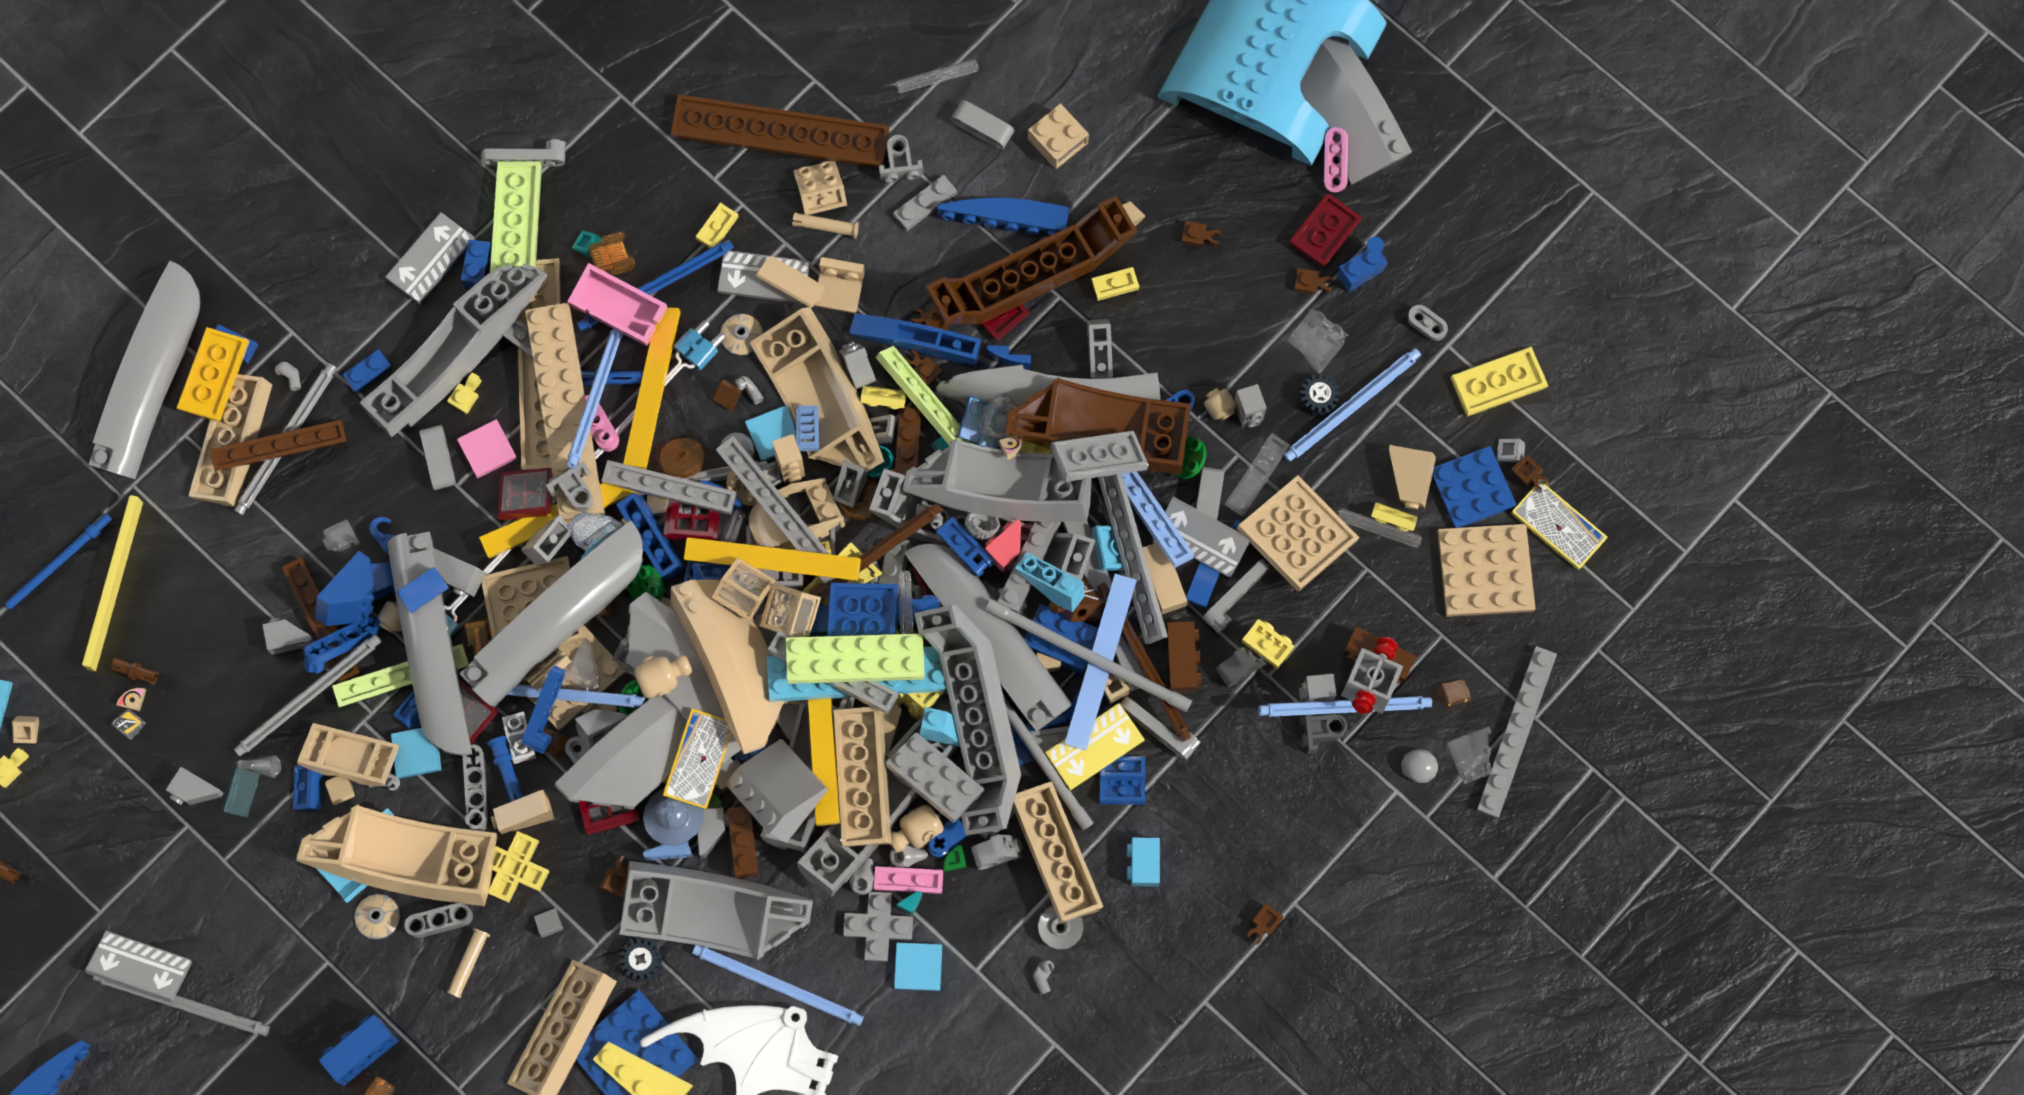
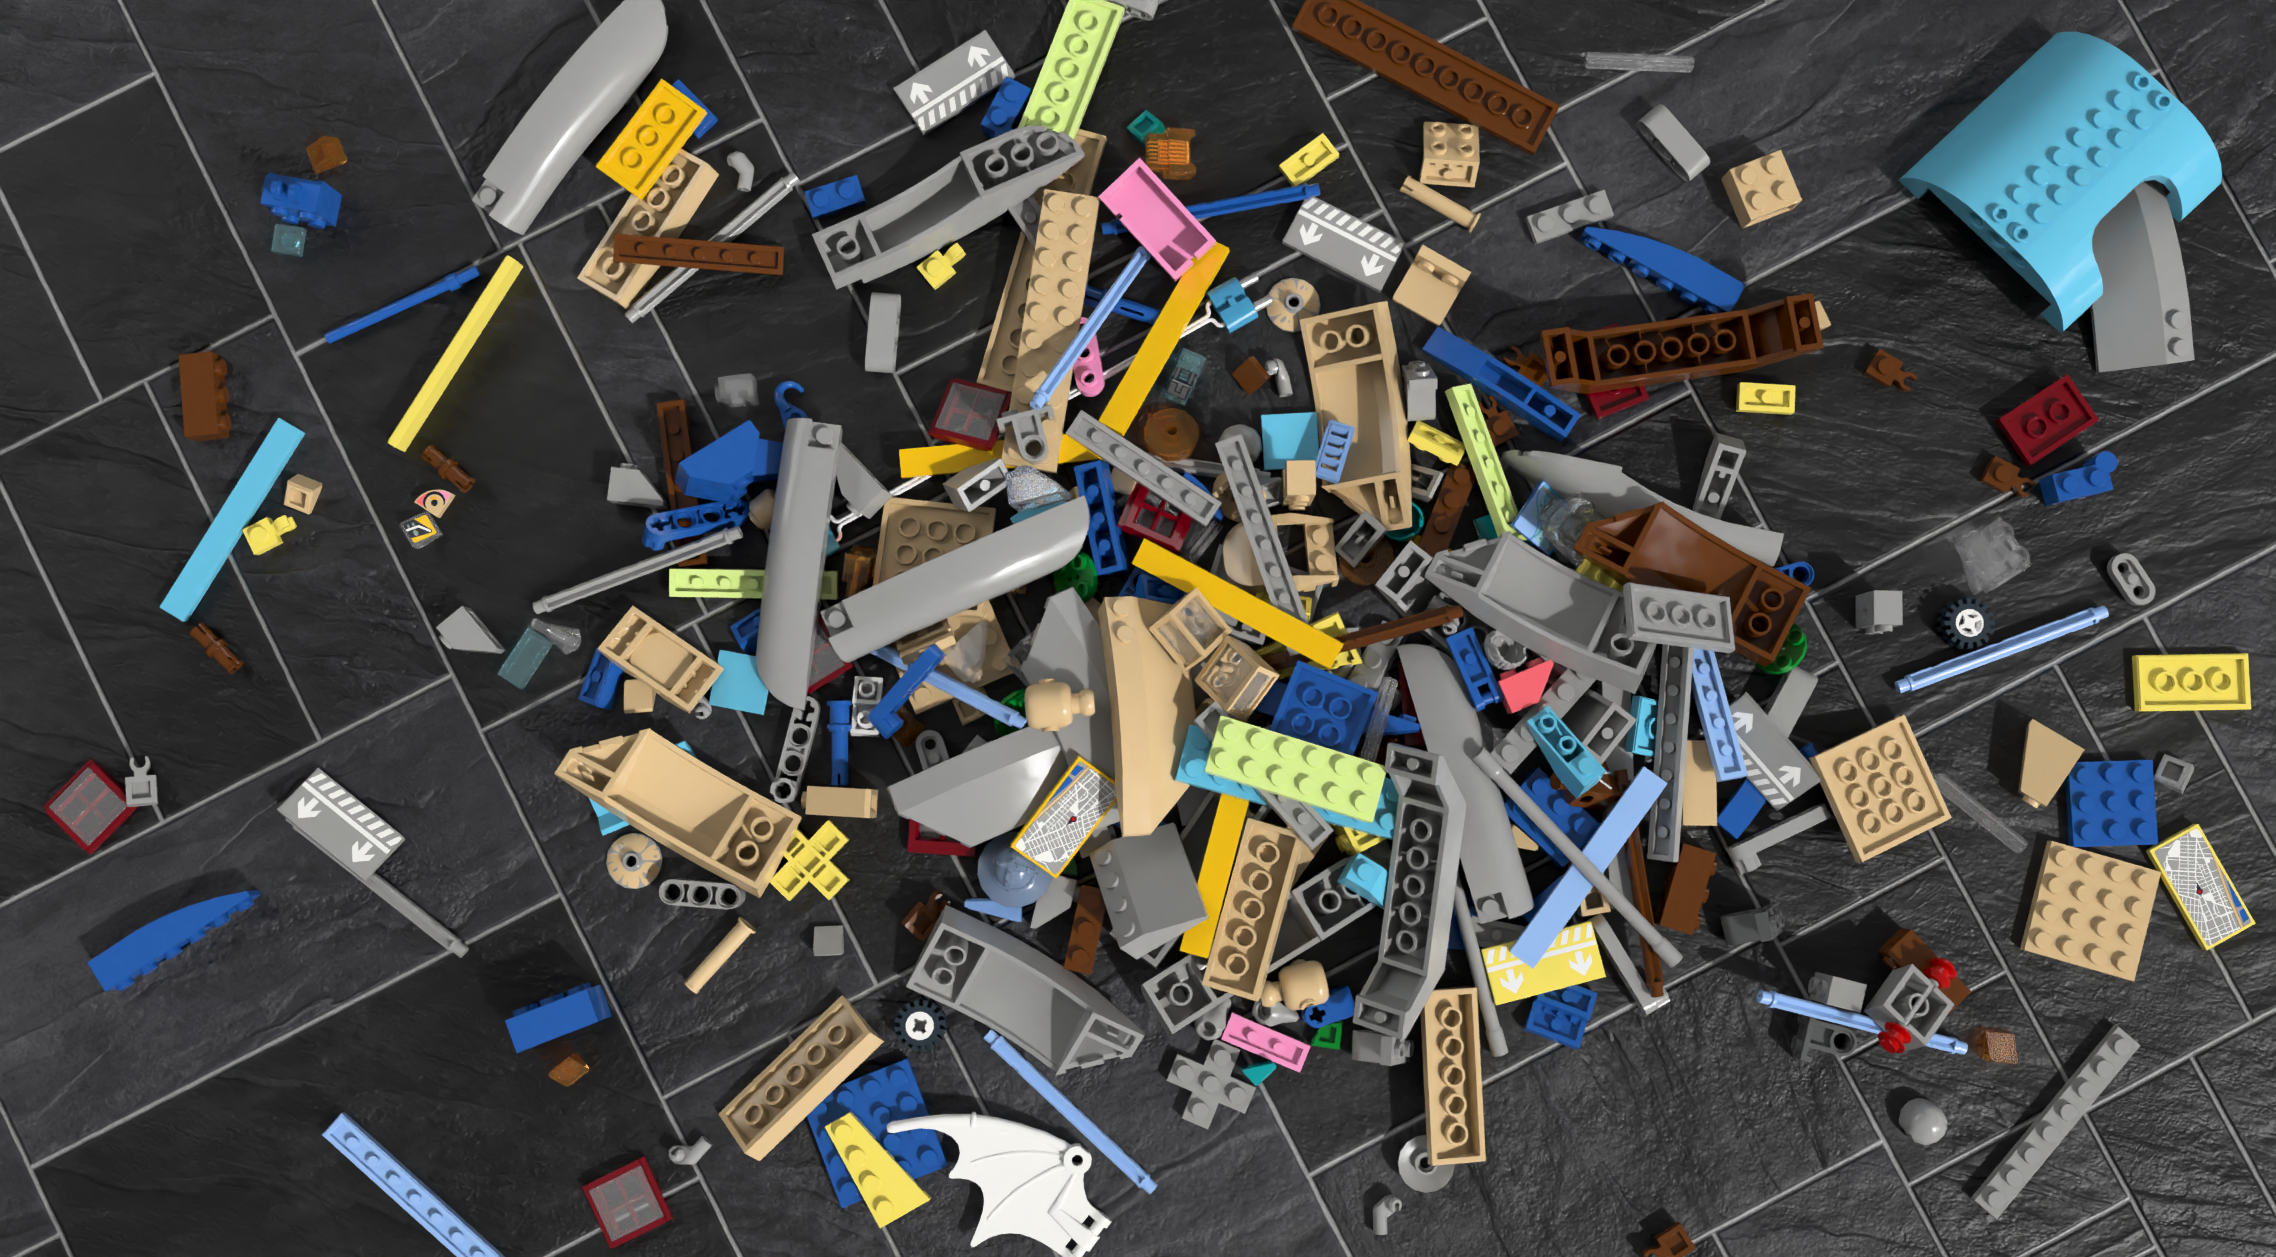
camera: 25 degrees right, 10 degrees up
(422, 590) = (807, 498): blue slope -> none
(487, 448) = (944, 341): bright pink tile -> none
(596, 724) = (964, 731): light grey slope -> none
(678, 412) = (1185, 376): none -> leg
(791, 281) = (1375, 261): tan slope -> none
(900, 162) = (1557, 156): light grey pin -> none
(918, 966) = (1241, 1148): medium azure tile -> none
(934, 777) = (1340, 940): light grey plate -> none
(1001, 355) = (1598, 442): blue slope -> none
(1010, 446) = (1572, 565): tan tile -> none
(1144, 862) = (1552, 1121): medium azure brick -> none
(1220, 404) = (1841, 593): tan head -> none
(1257, 474) = (1856, 698): clear slope -> none
(1268, 643) = (1798, 916): light yellow bracket -> none
(1332, 150) = (2094, 322): bright pink plate -> none
(1387, 514) = (2009, 812): light yellow plate -> none
(1472, 755) = (1991, 1131): clear slope -> none
(1529, 471) = (2189, 809): reddish brown plate -> none

